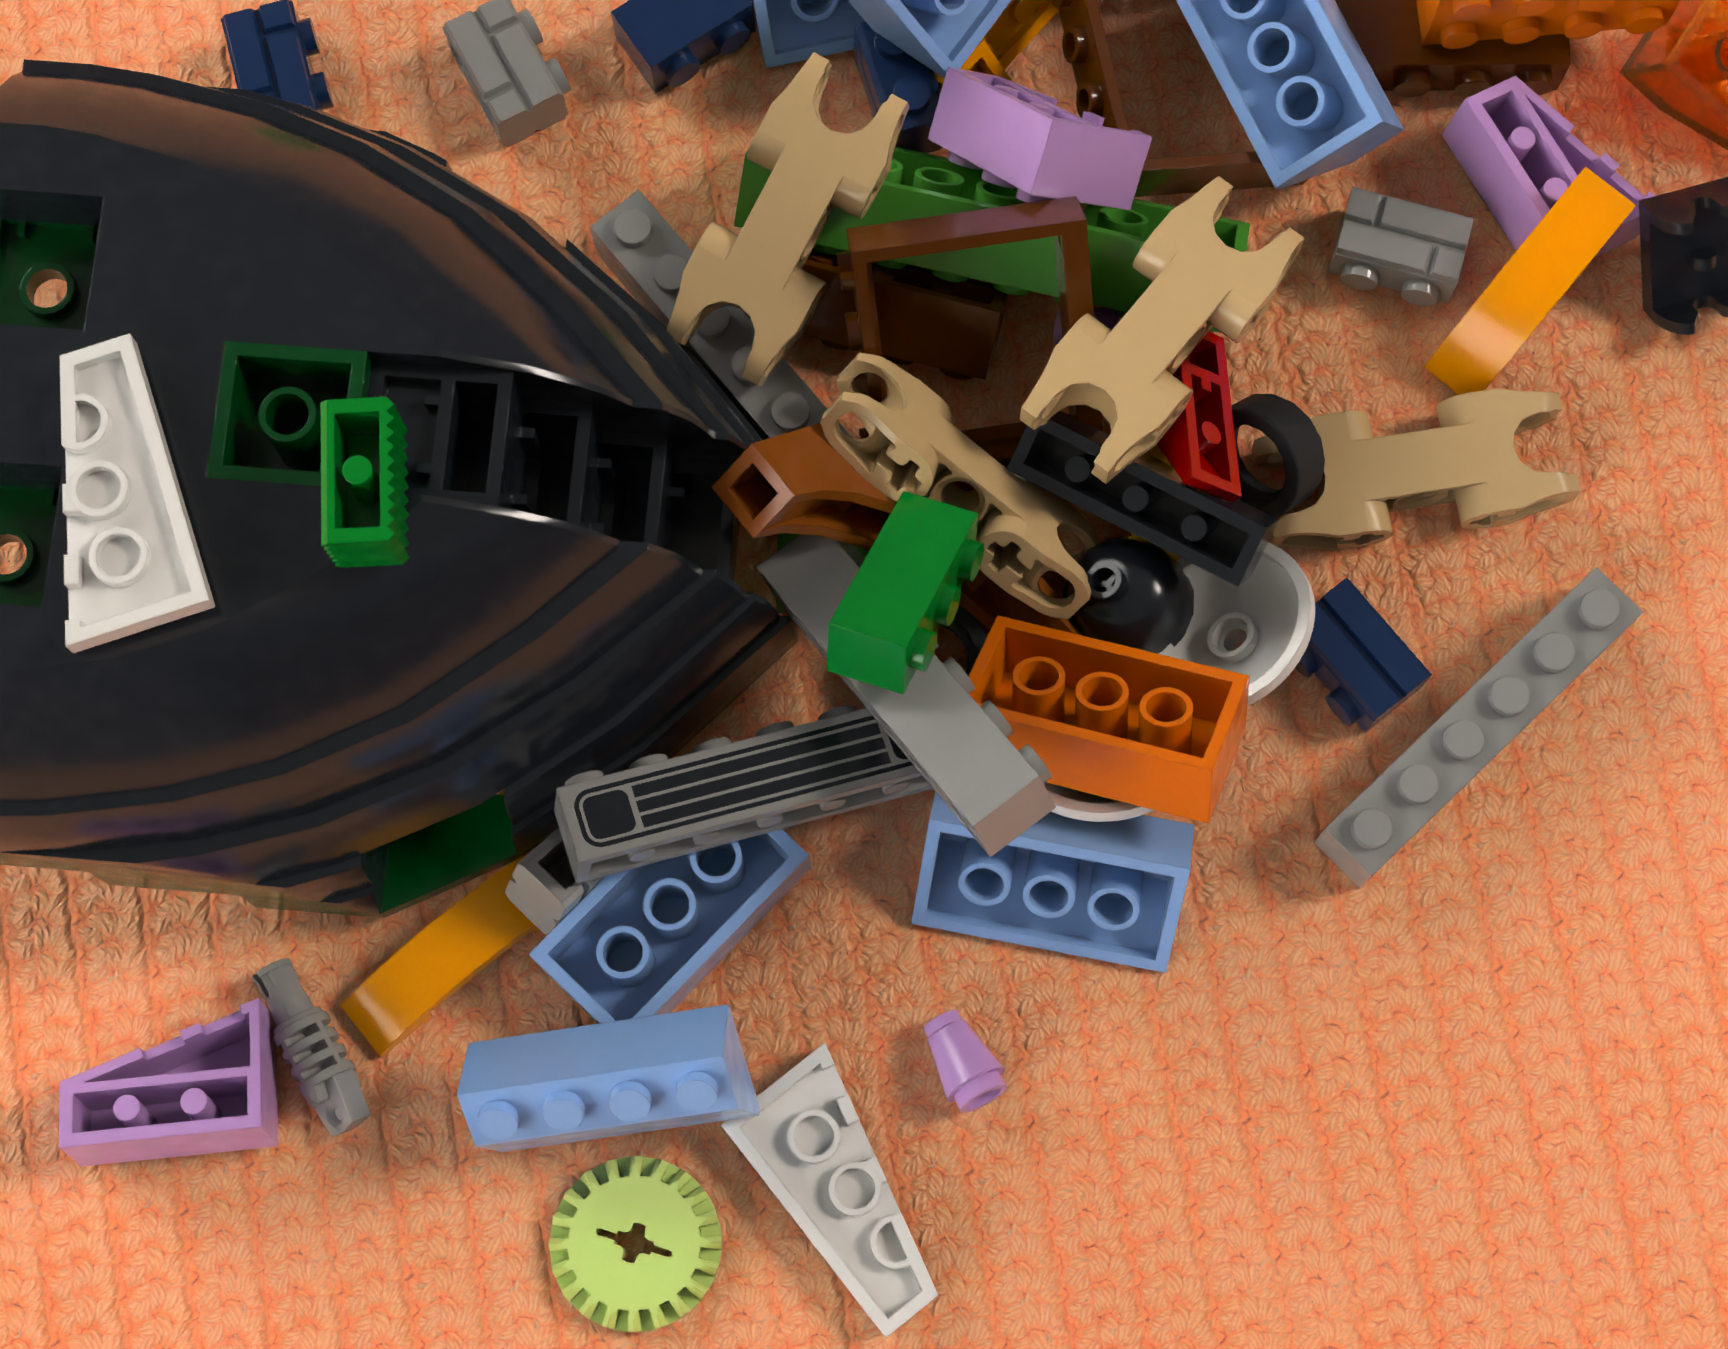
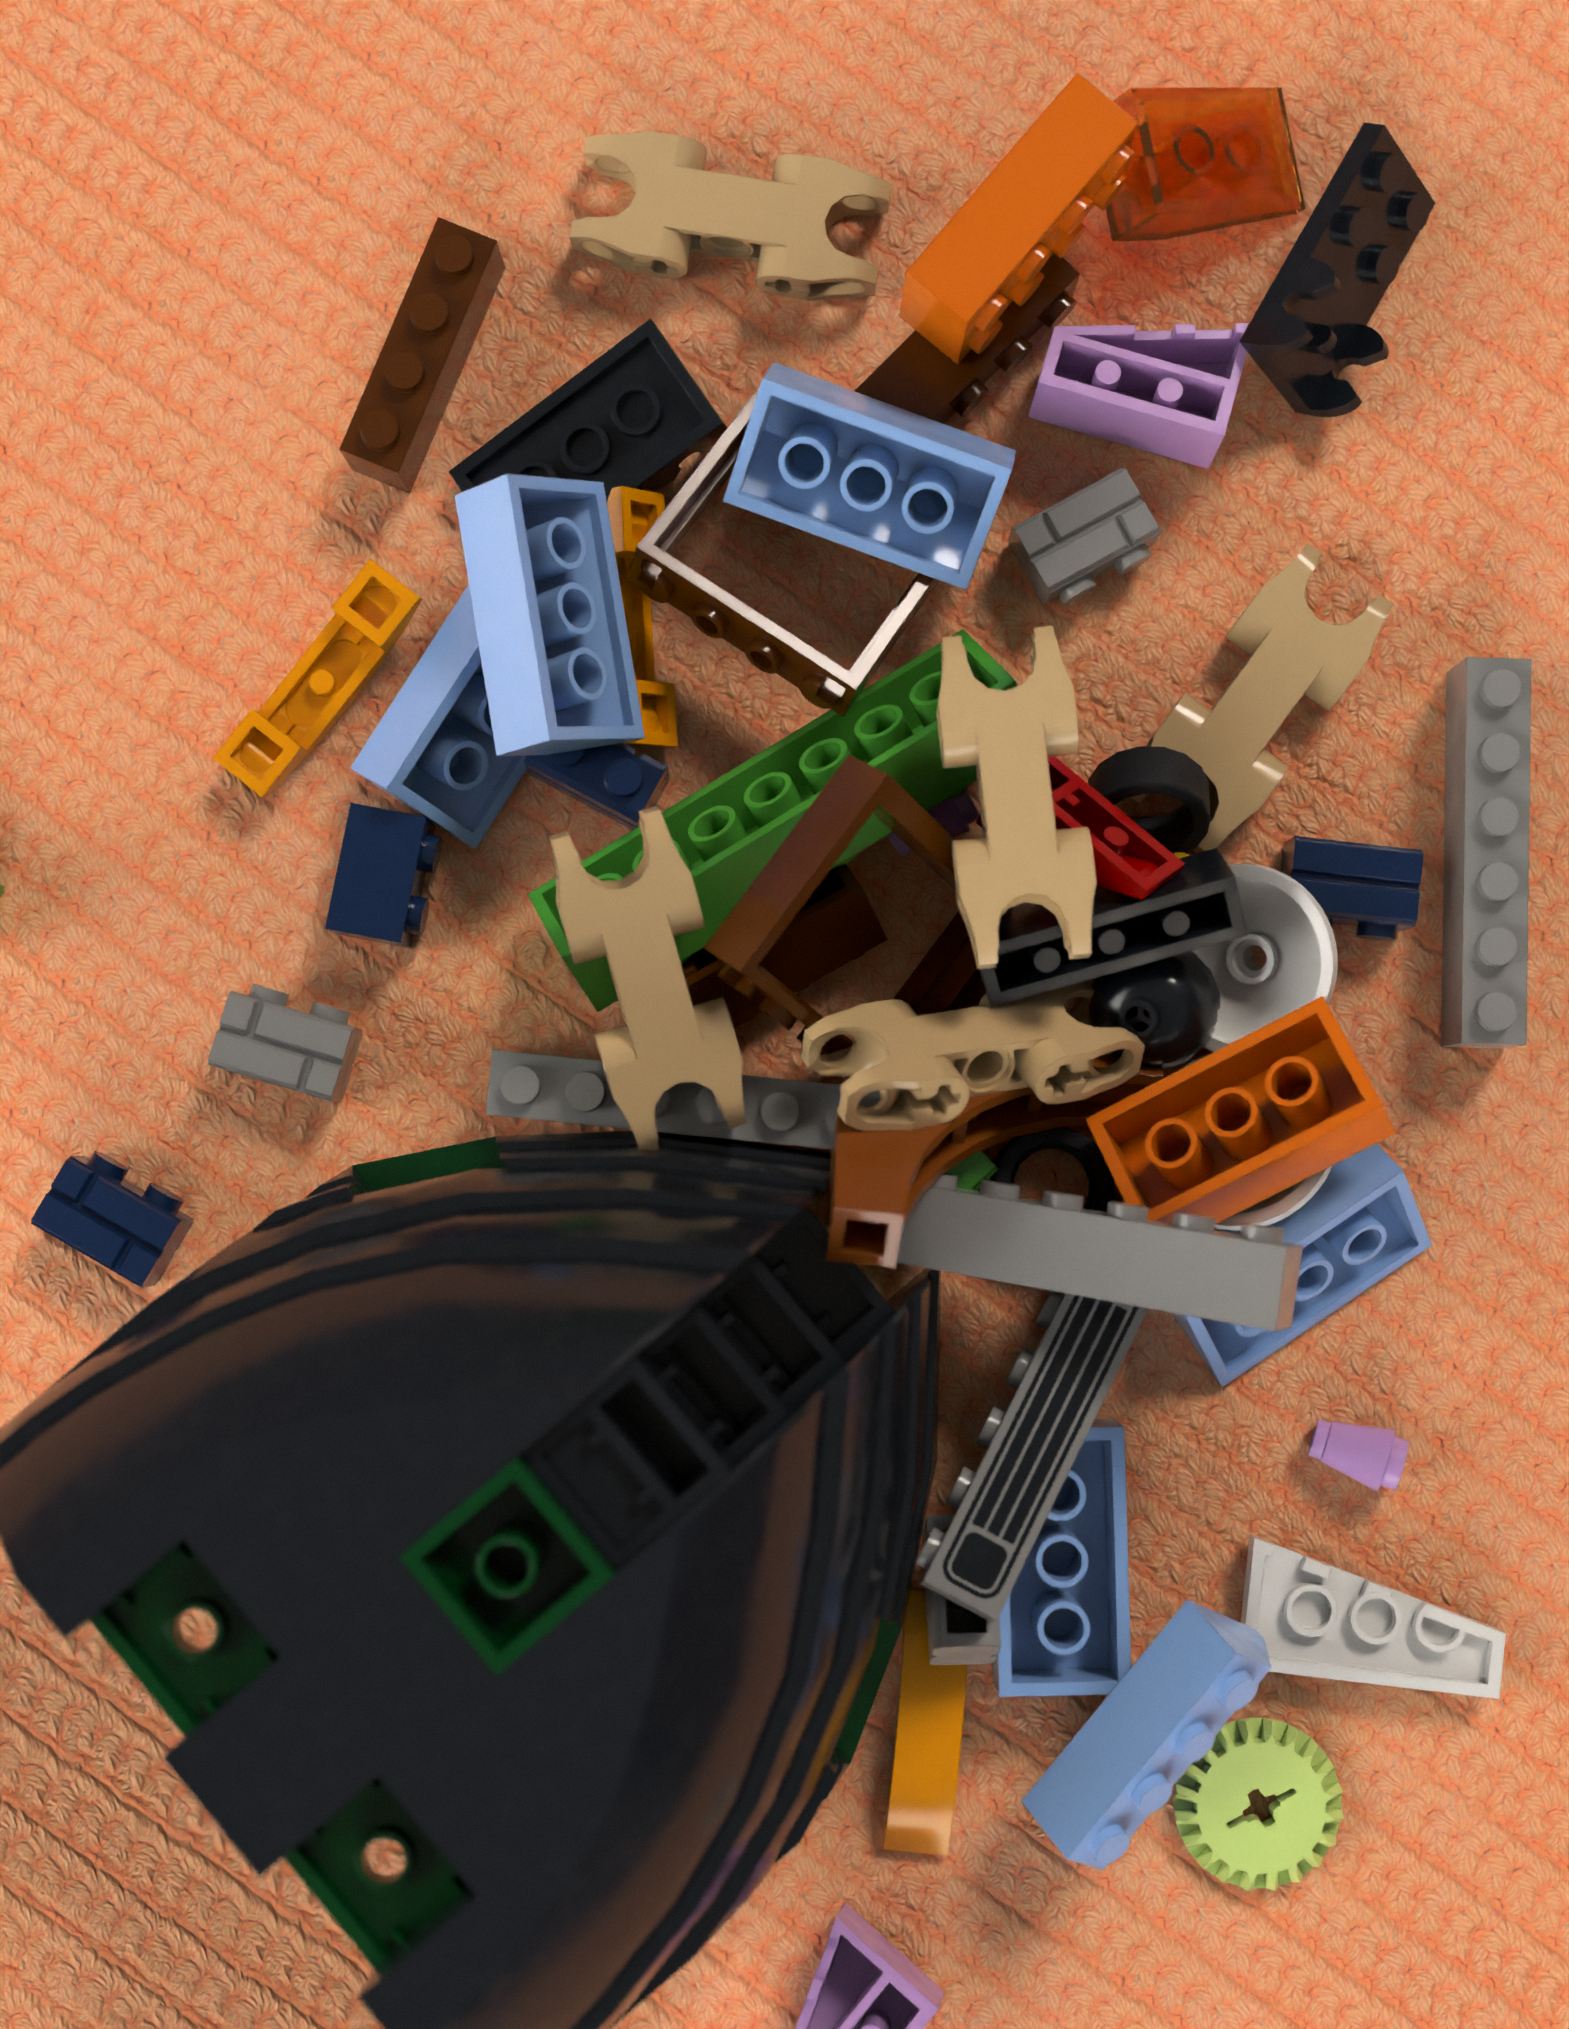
camera: 45 degrees left, 10 degrees up
(127, 521) = (470, 1769): white wing -> none
(312, 1049) = (900, 1903): light grey hinge -> none
(363, 482) = (638, 1578): green brick -> none
(904, 593) = (1037, 1192): green brick -> none
(1034, 144) = (763, 736): lavender wedge -> none
(1530, 284) = (1223, 481): light orange slope -> none

